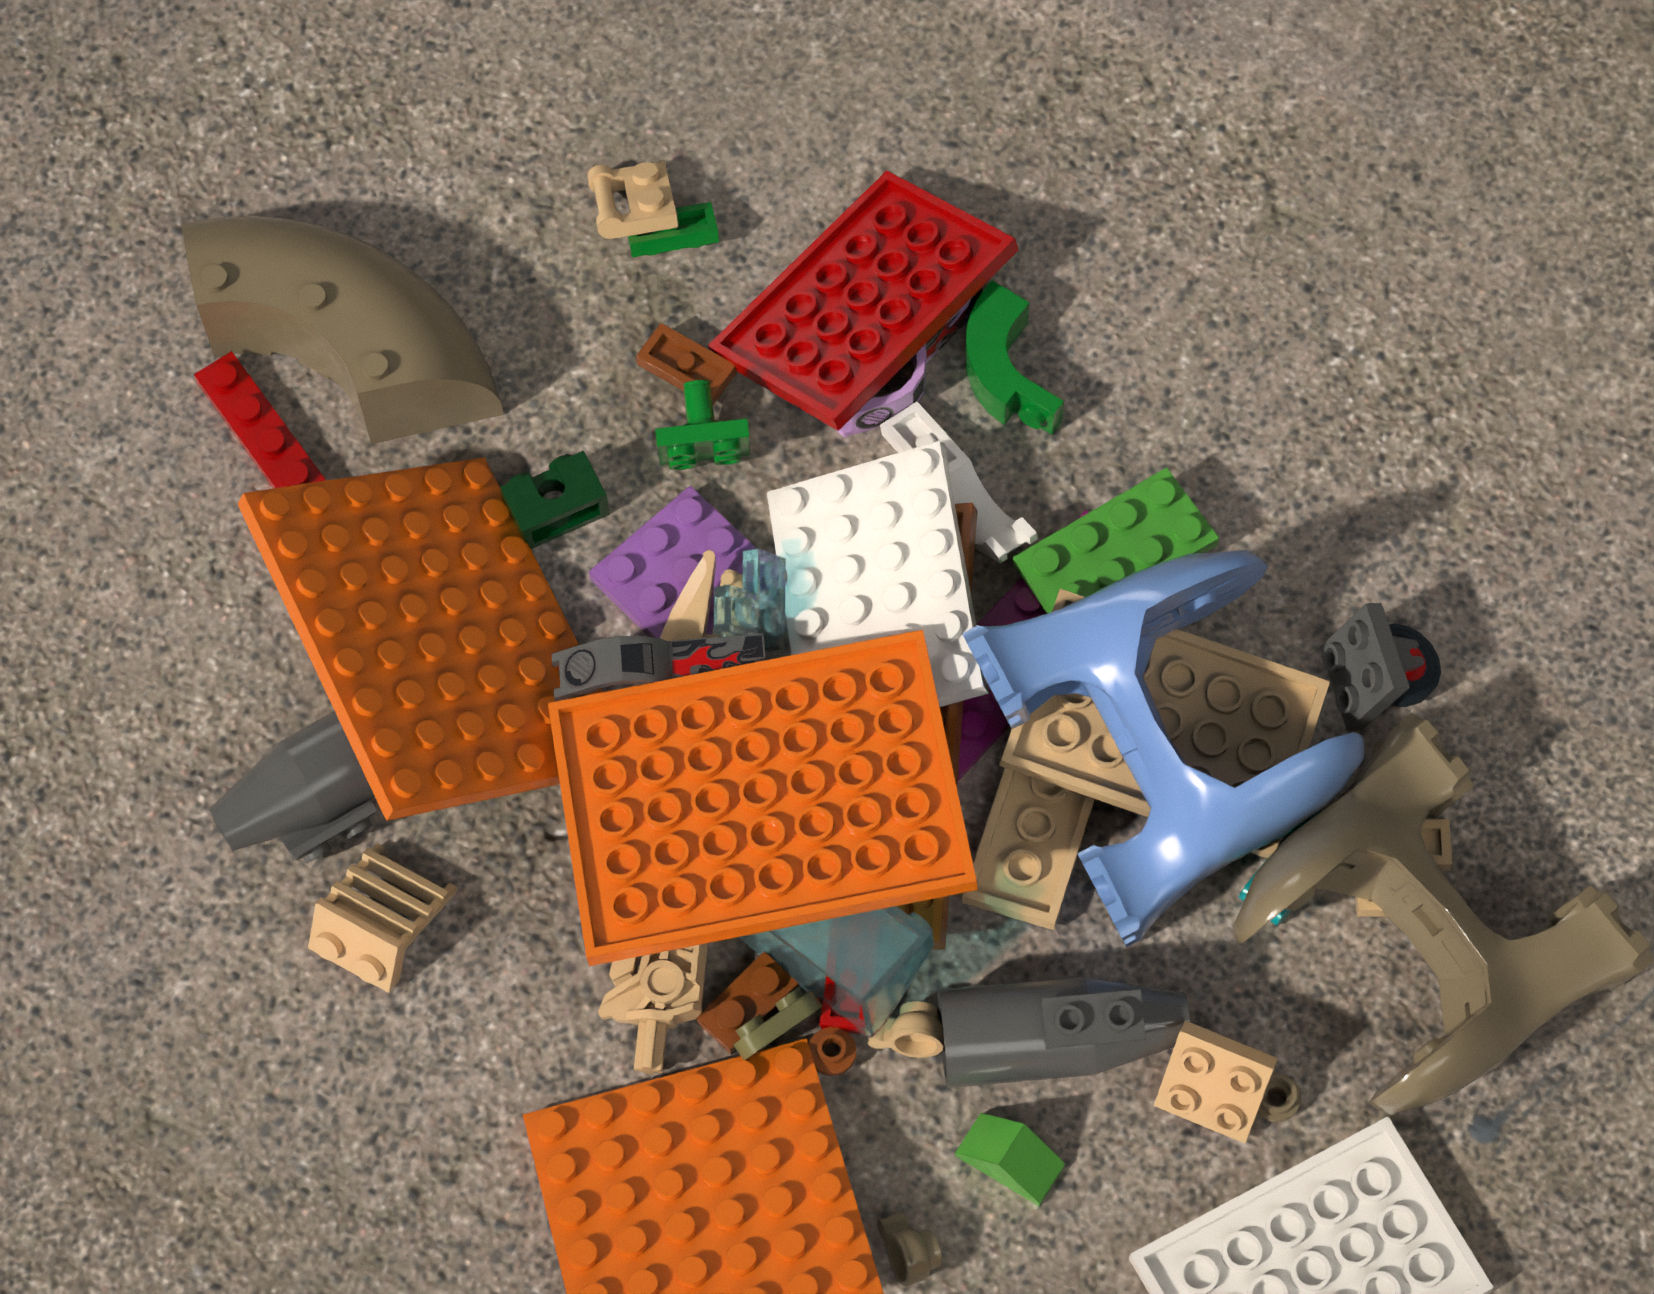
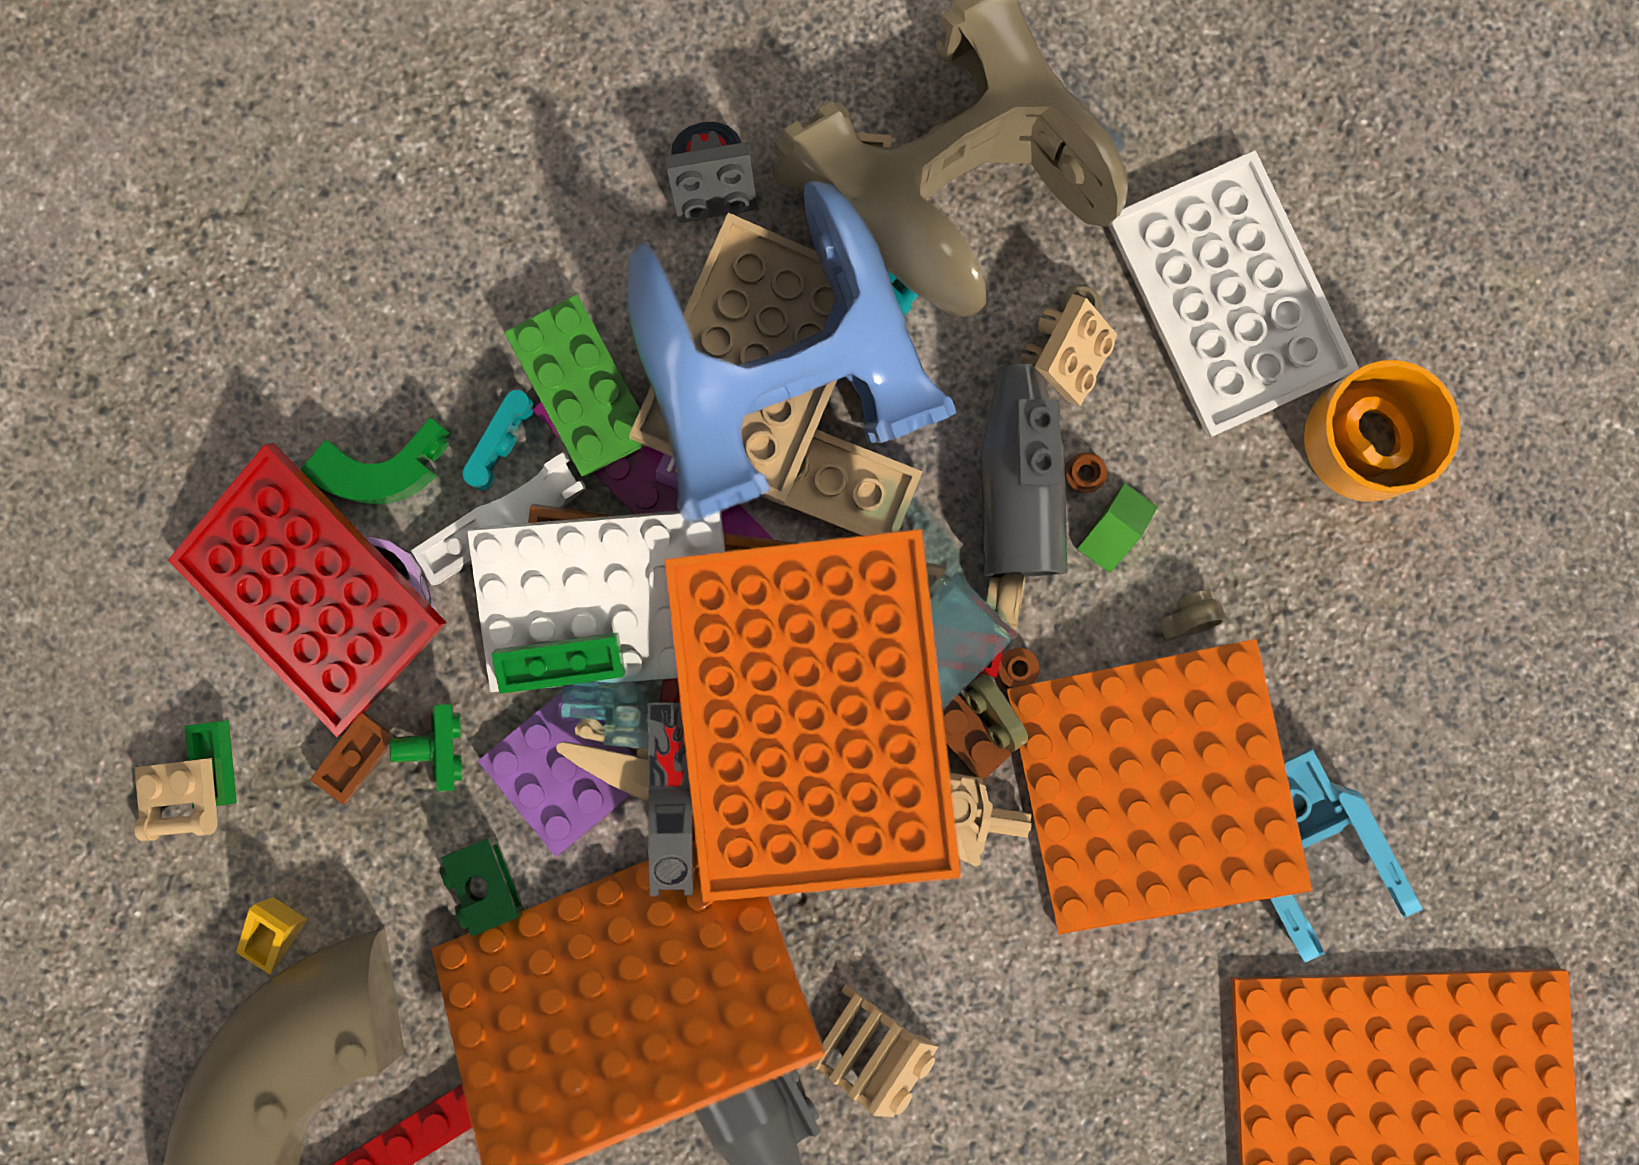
camera: 90 degrees left, 20 degrees up
(496, 300) = (269, 933): none -> yellow slope
(802, 546) = (558, 663): none -> green plate
(1046, 474) = (497, 440): none -> teal plate
(1072, 1102) = (1098, 469): none -> dark orange plate

